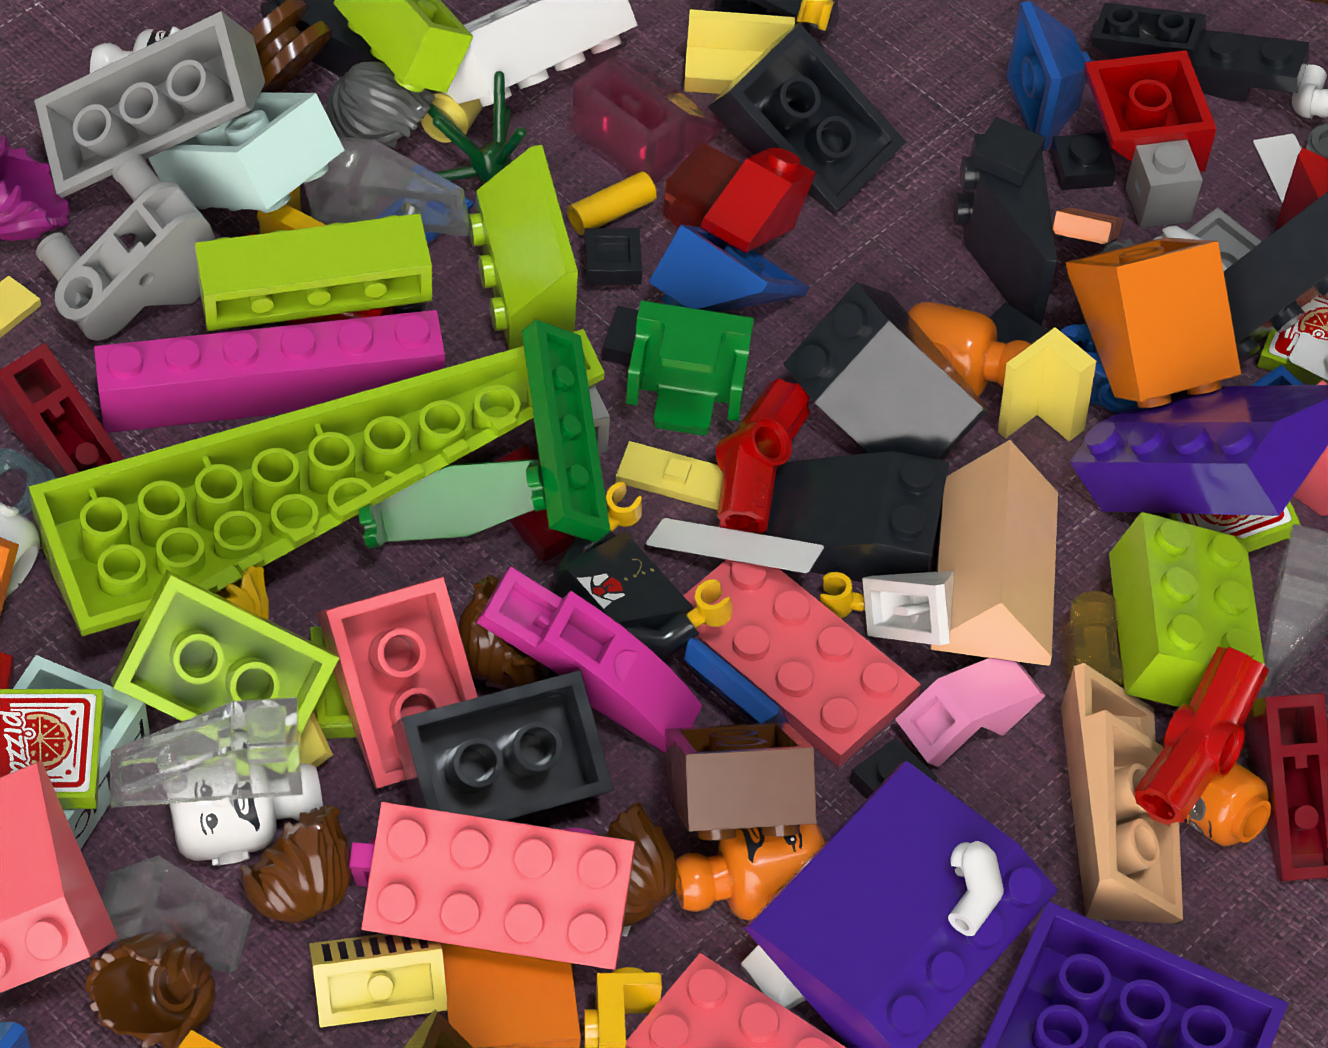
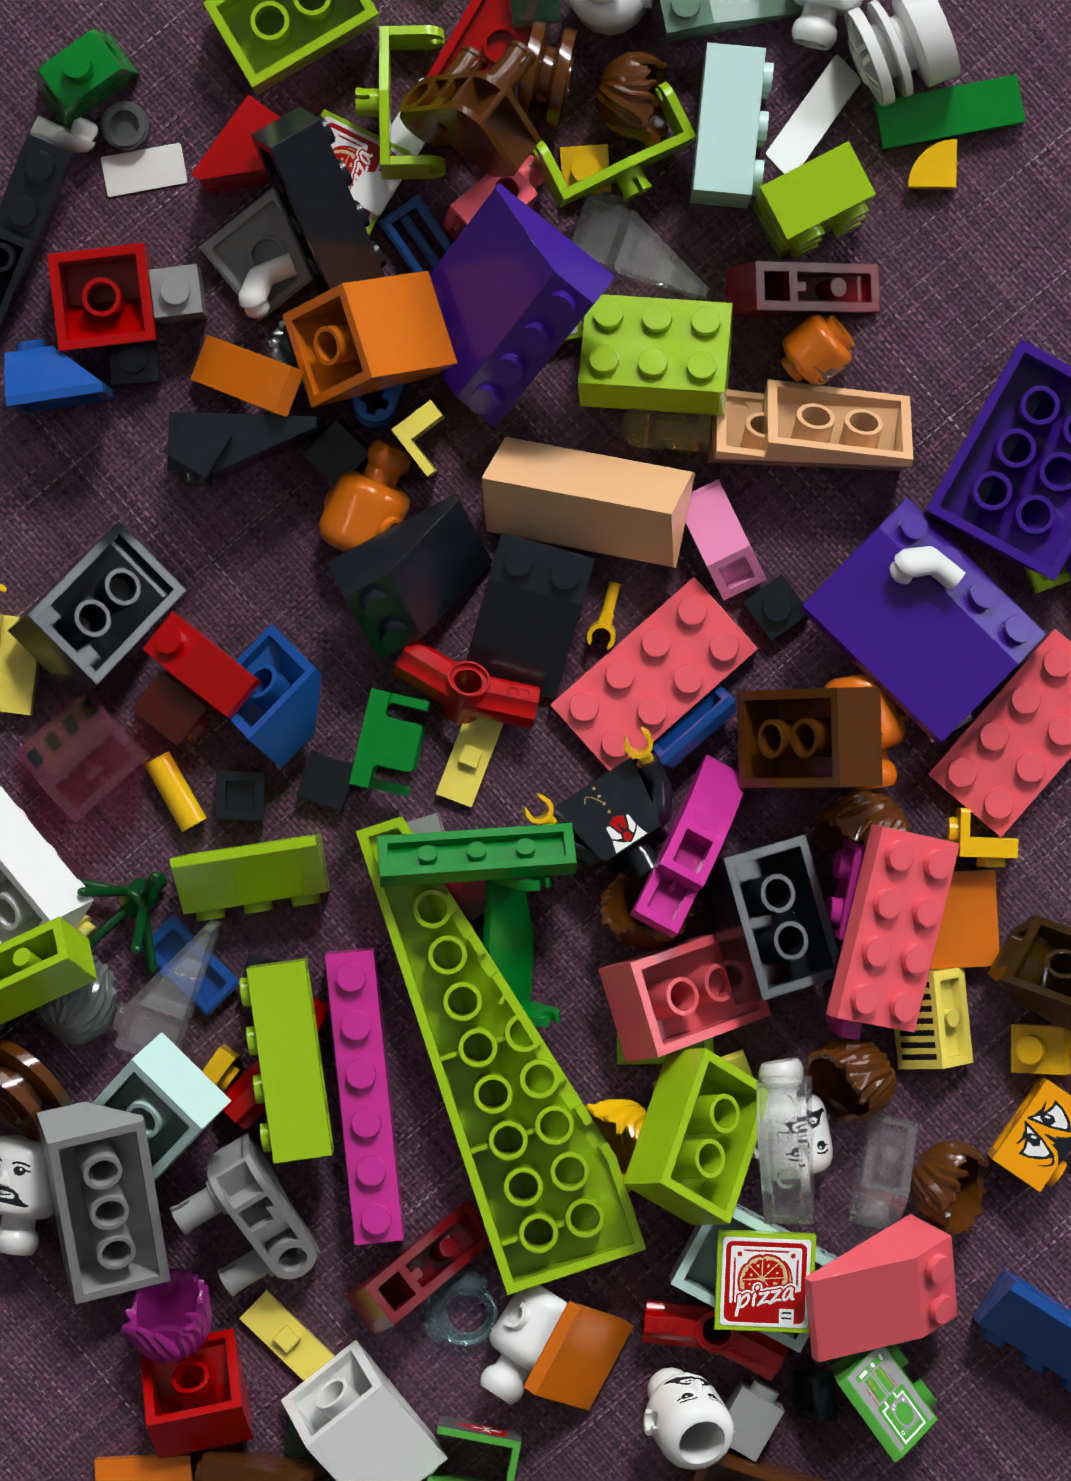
camera: 80 degrees left, 35 degrees up
(735, 545) = (557, 715): white sticker -> none
(910, 606) = (634, 576): white slope -> none
(1202, 737) = (789, 365): red piece -> none

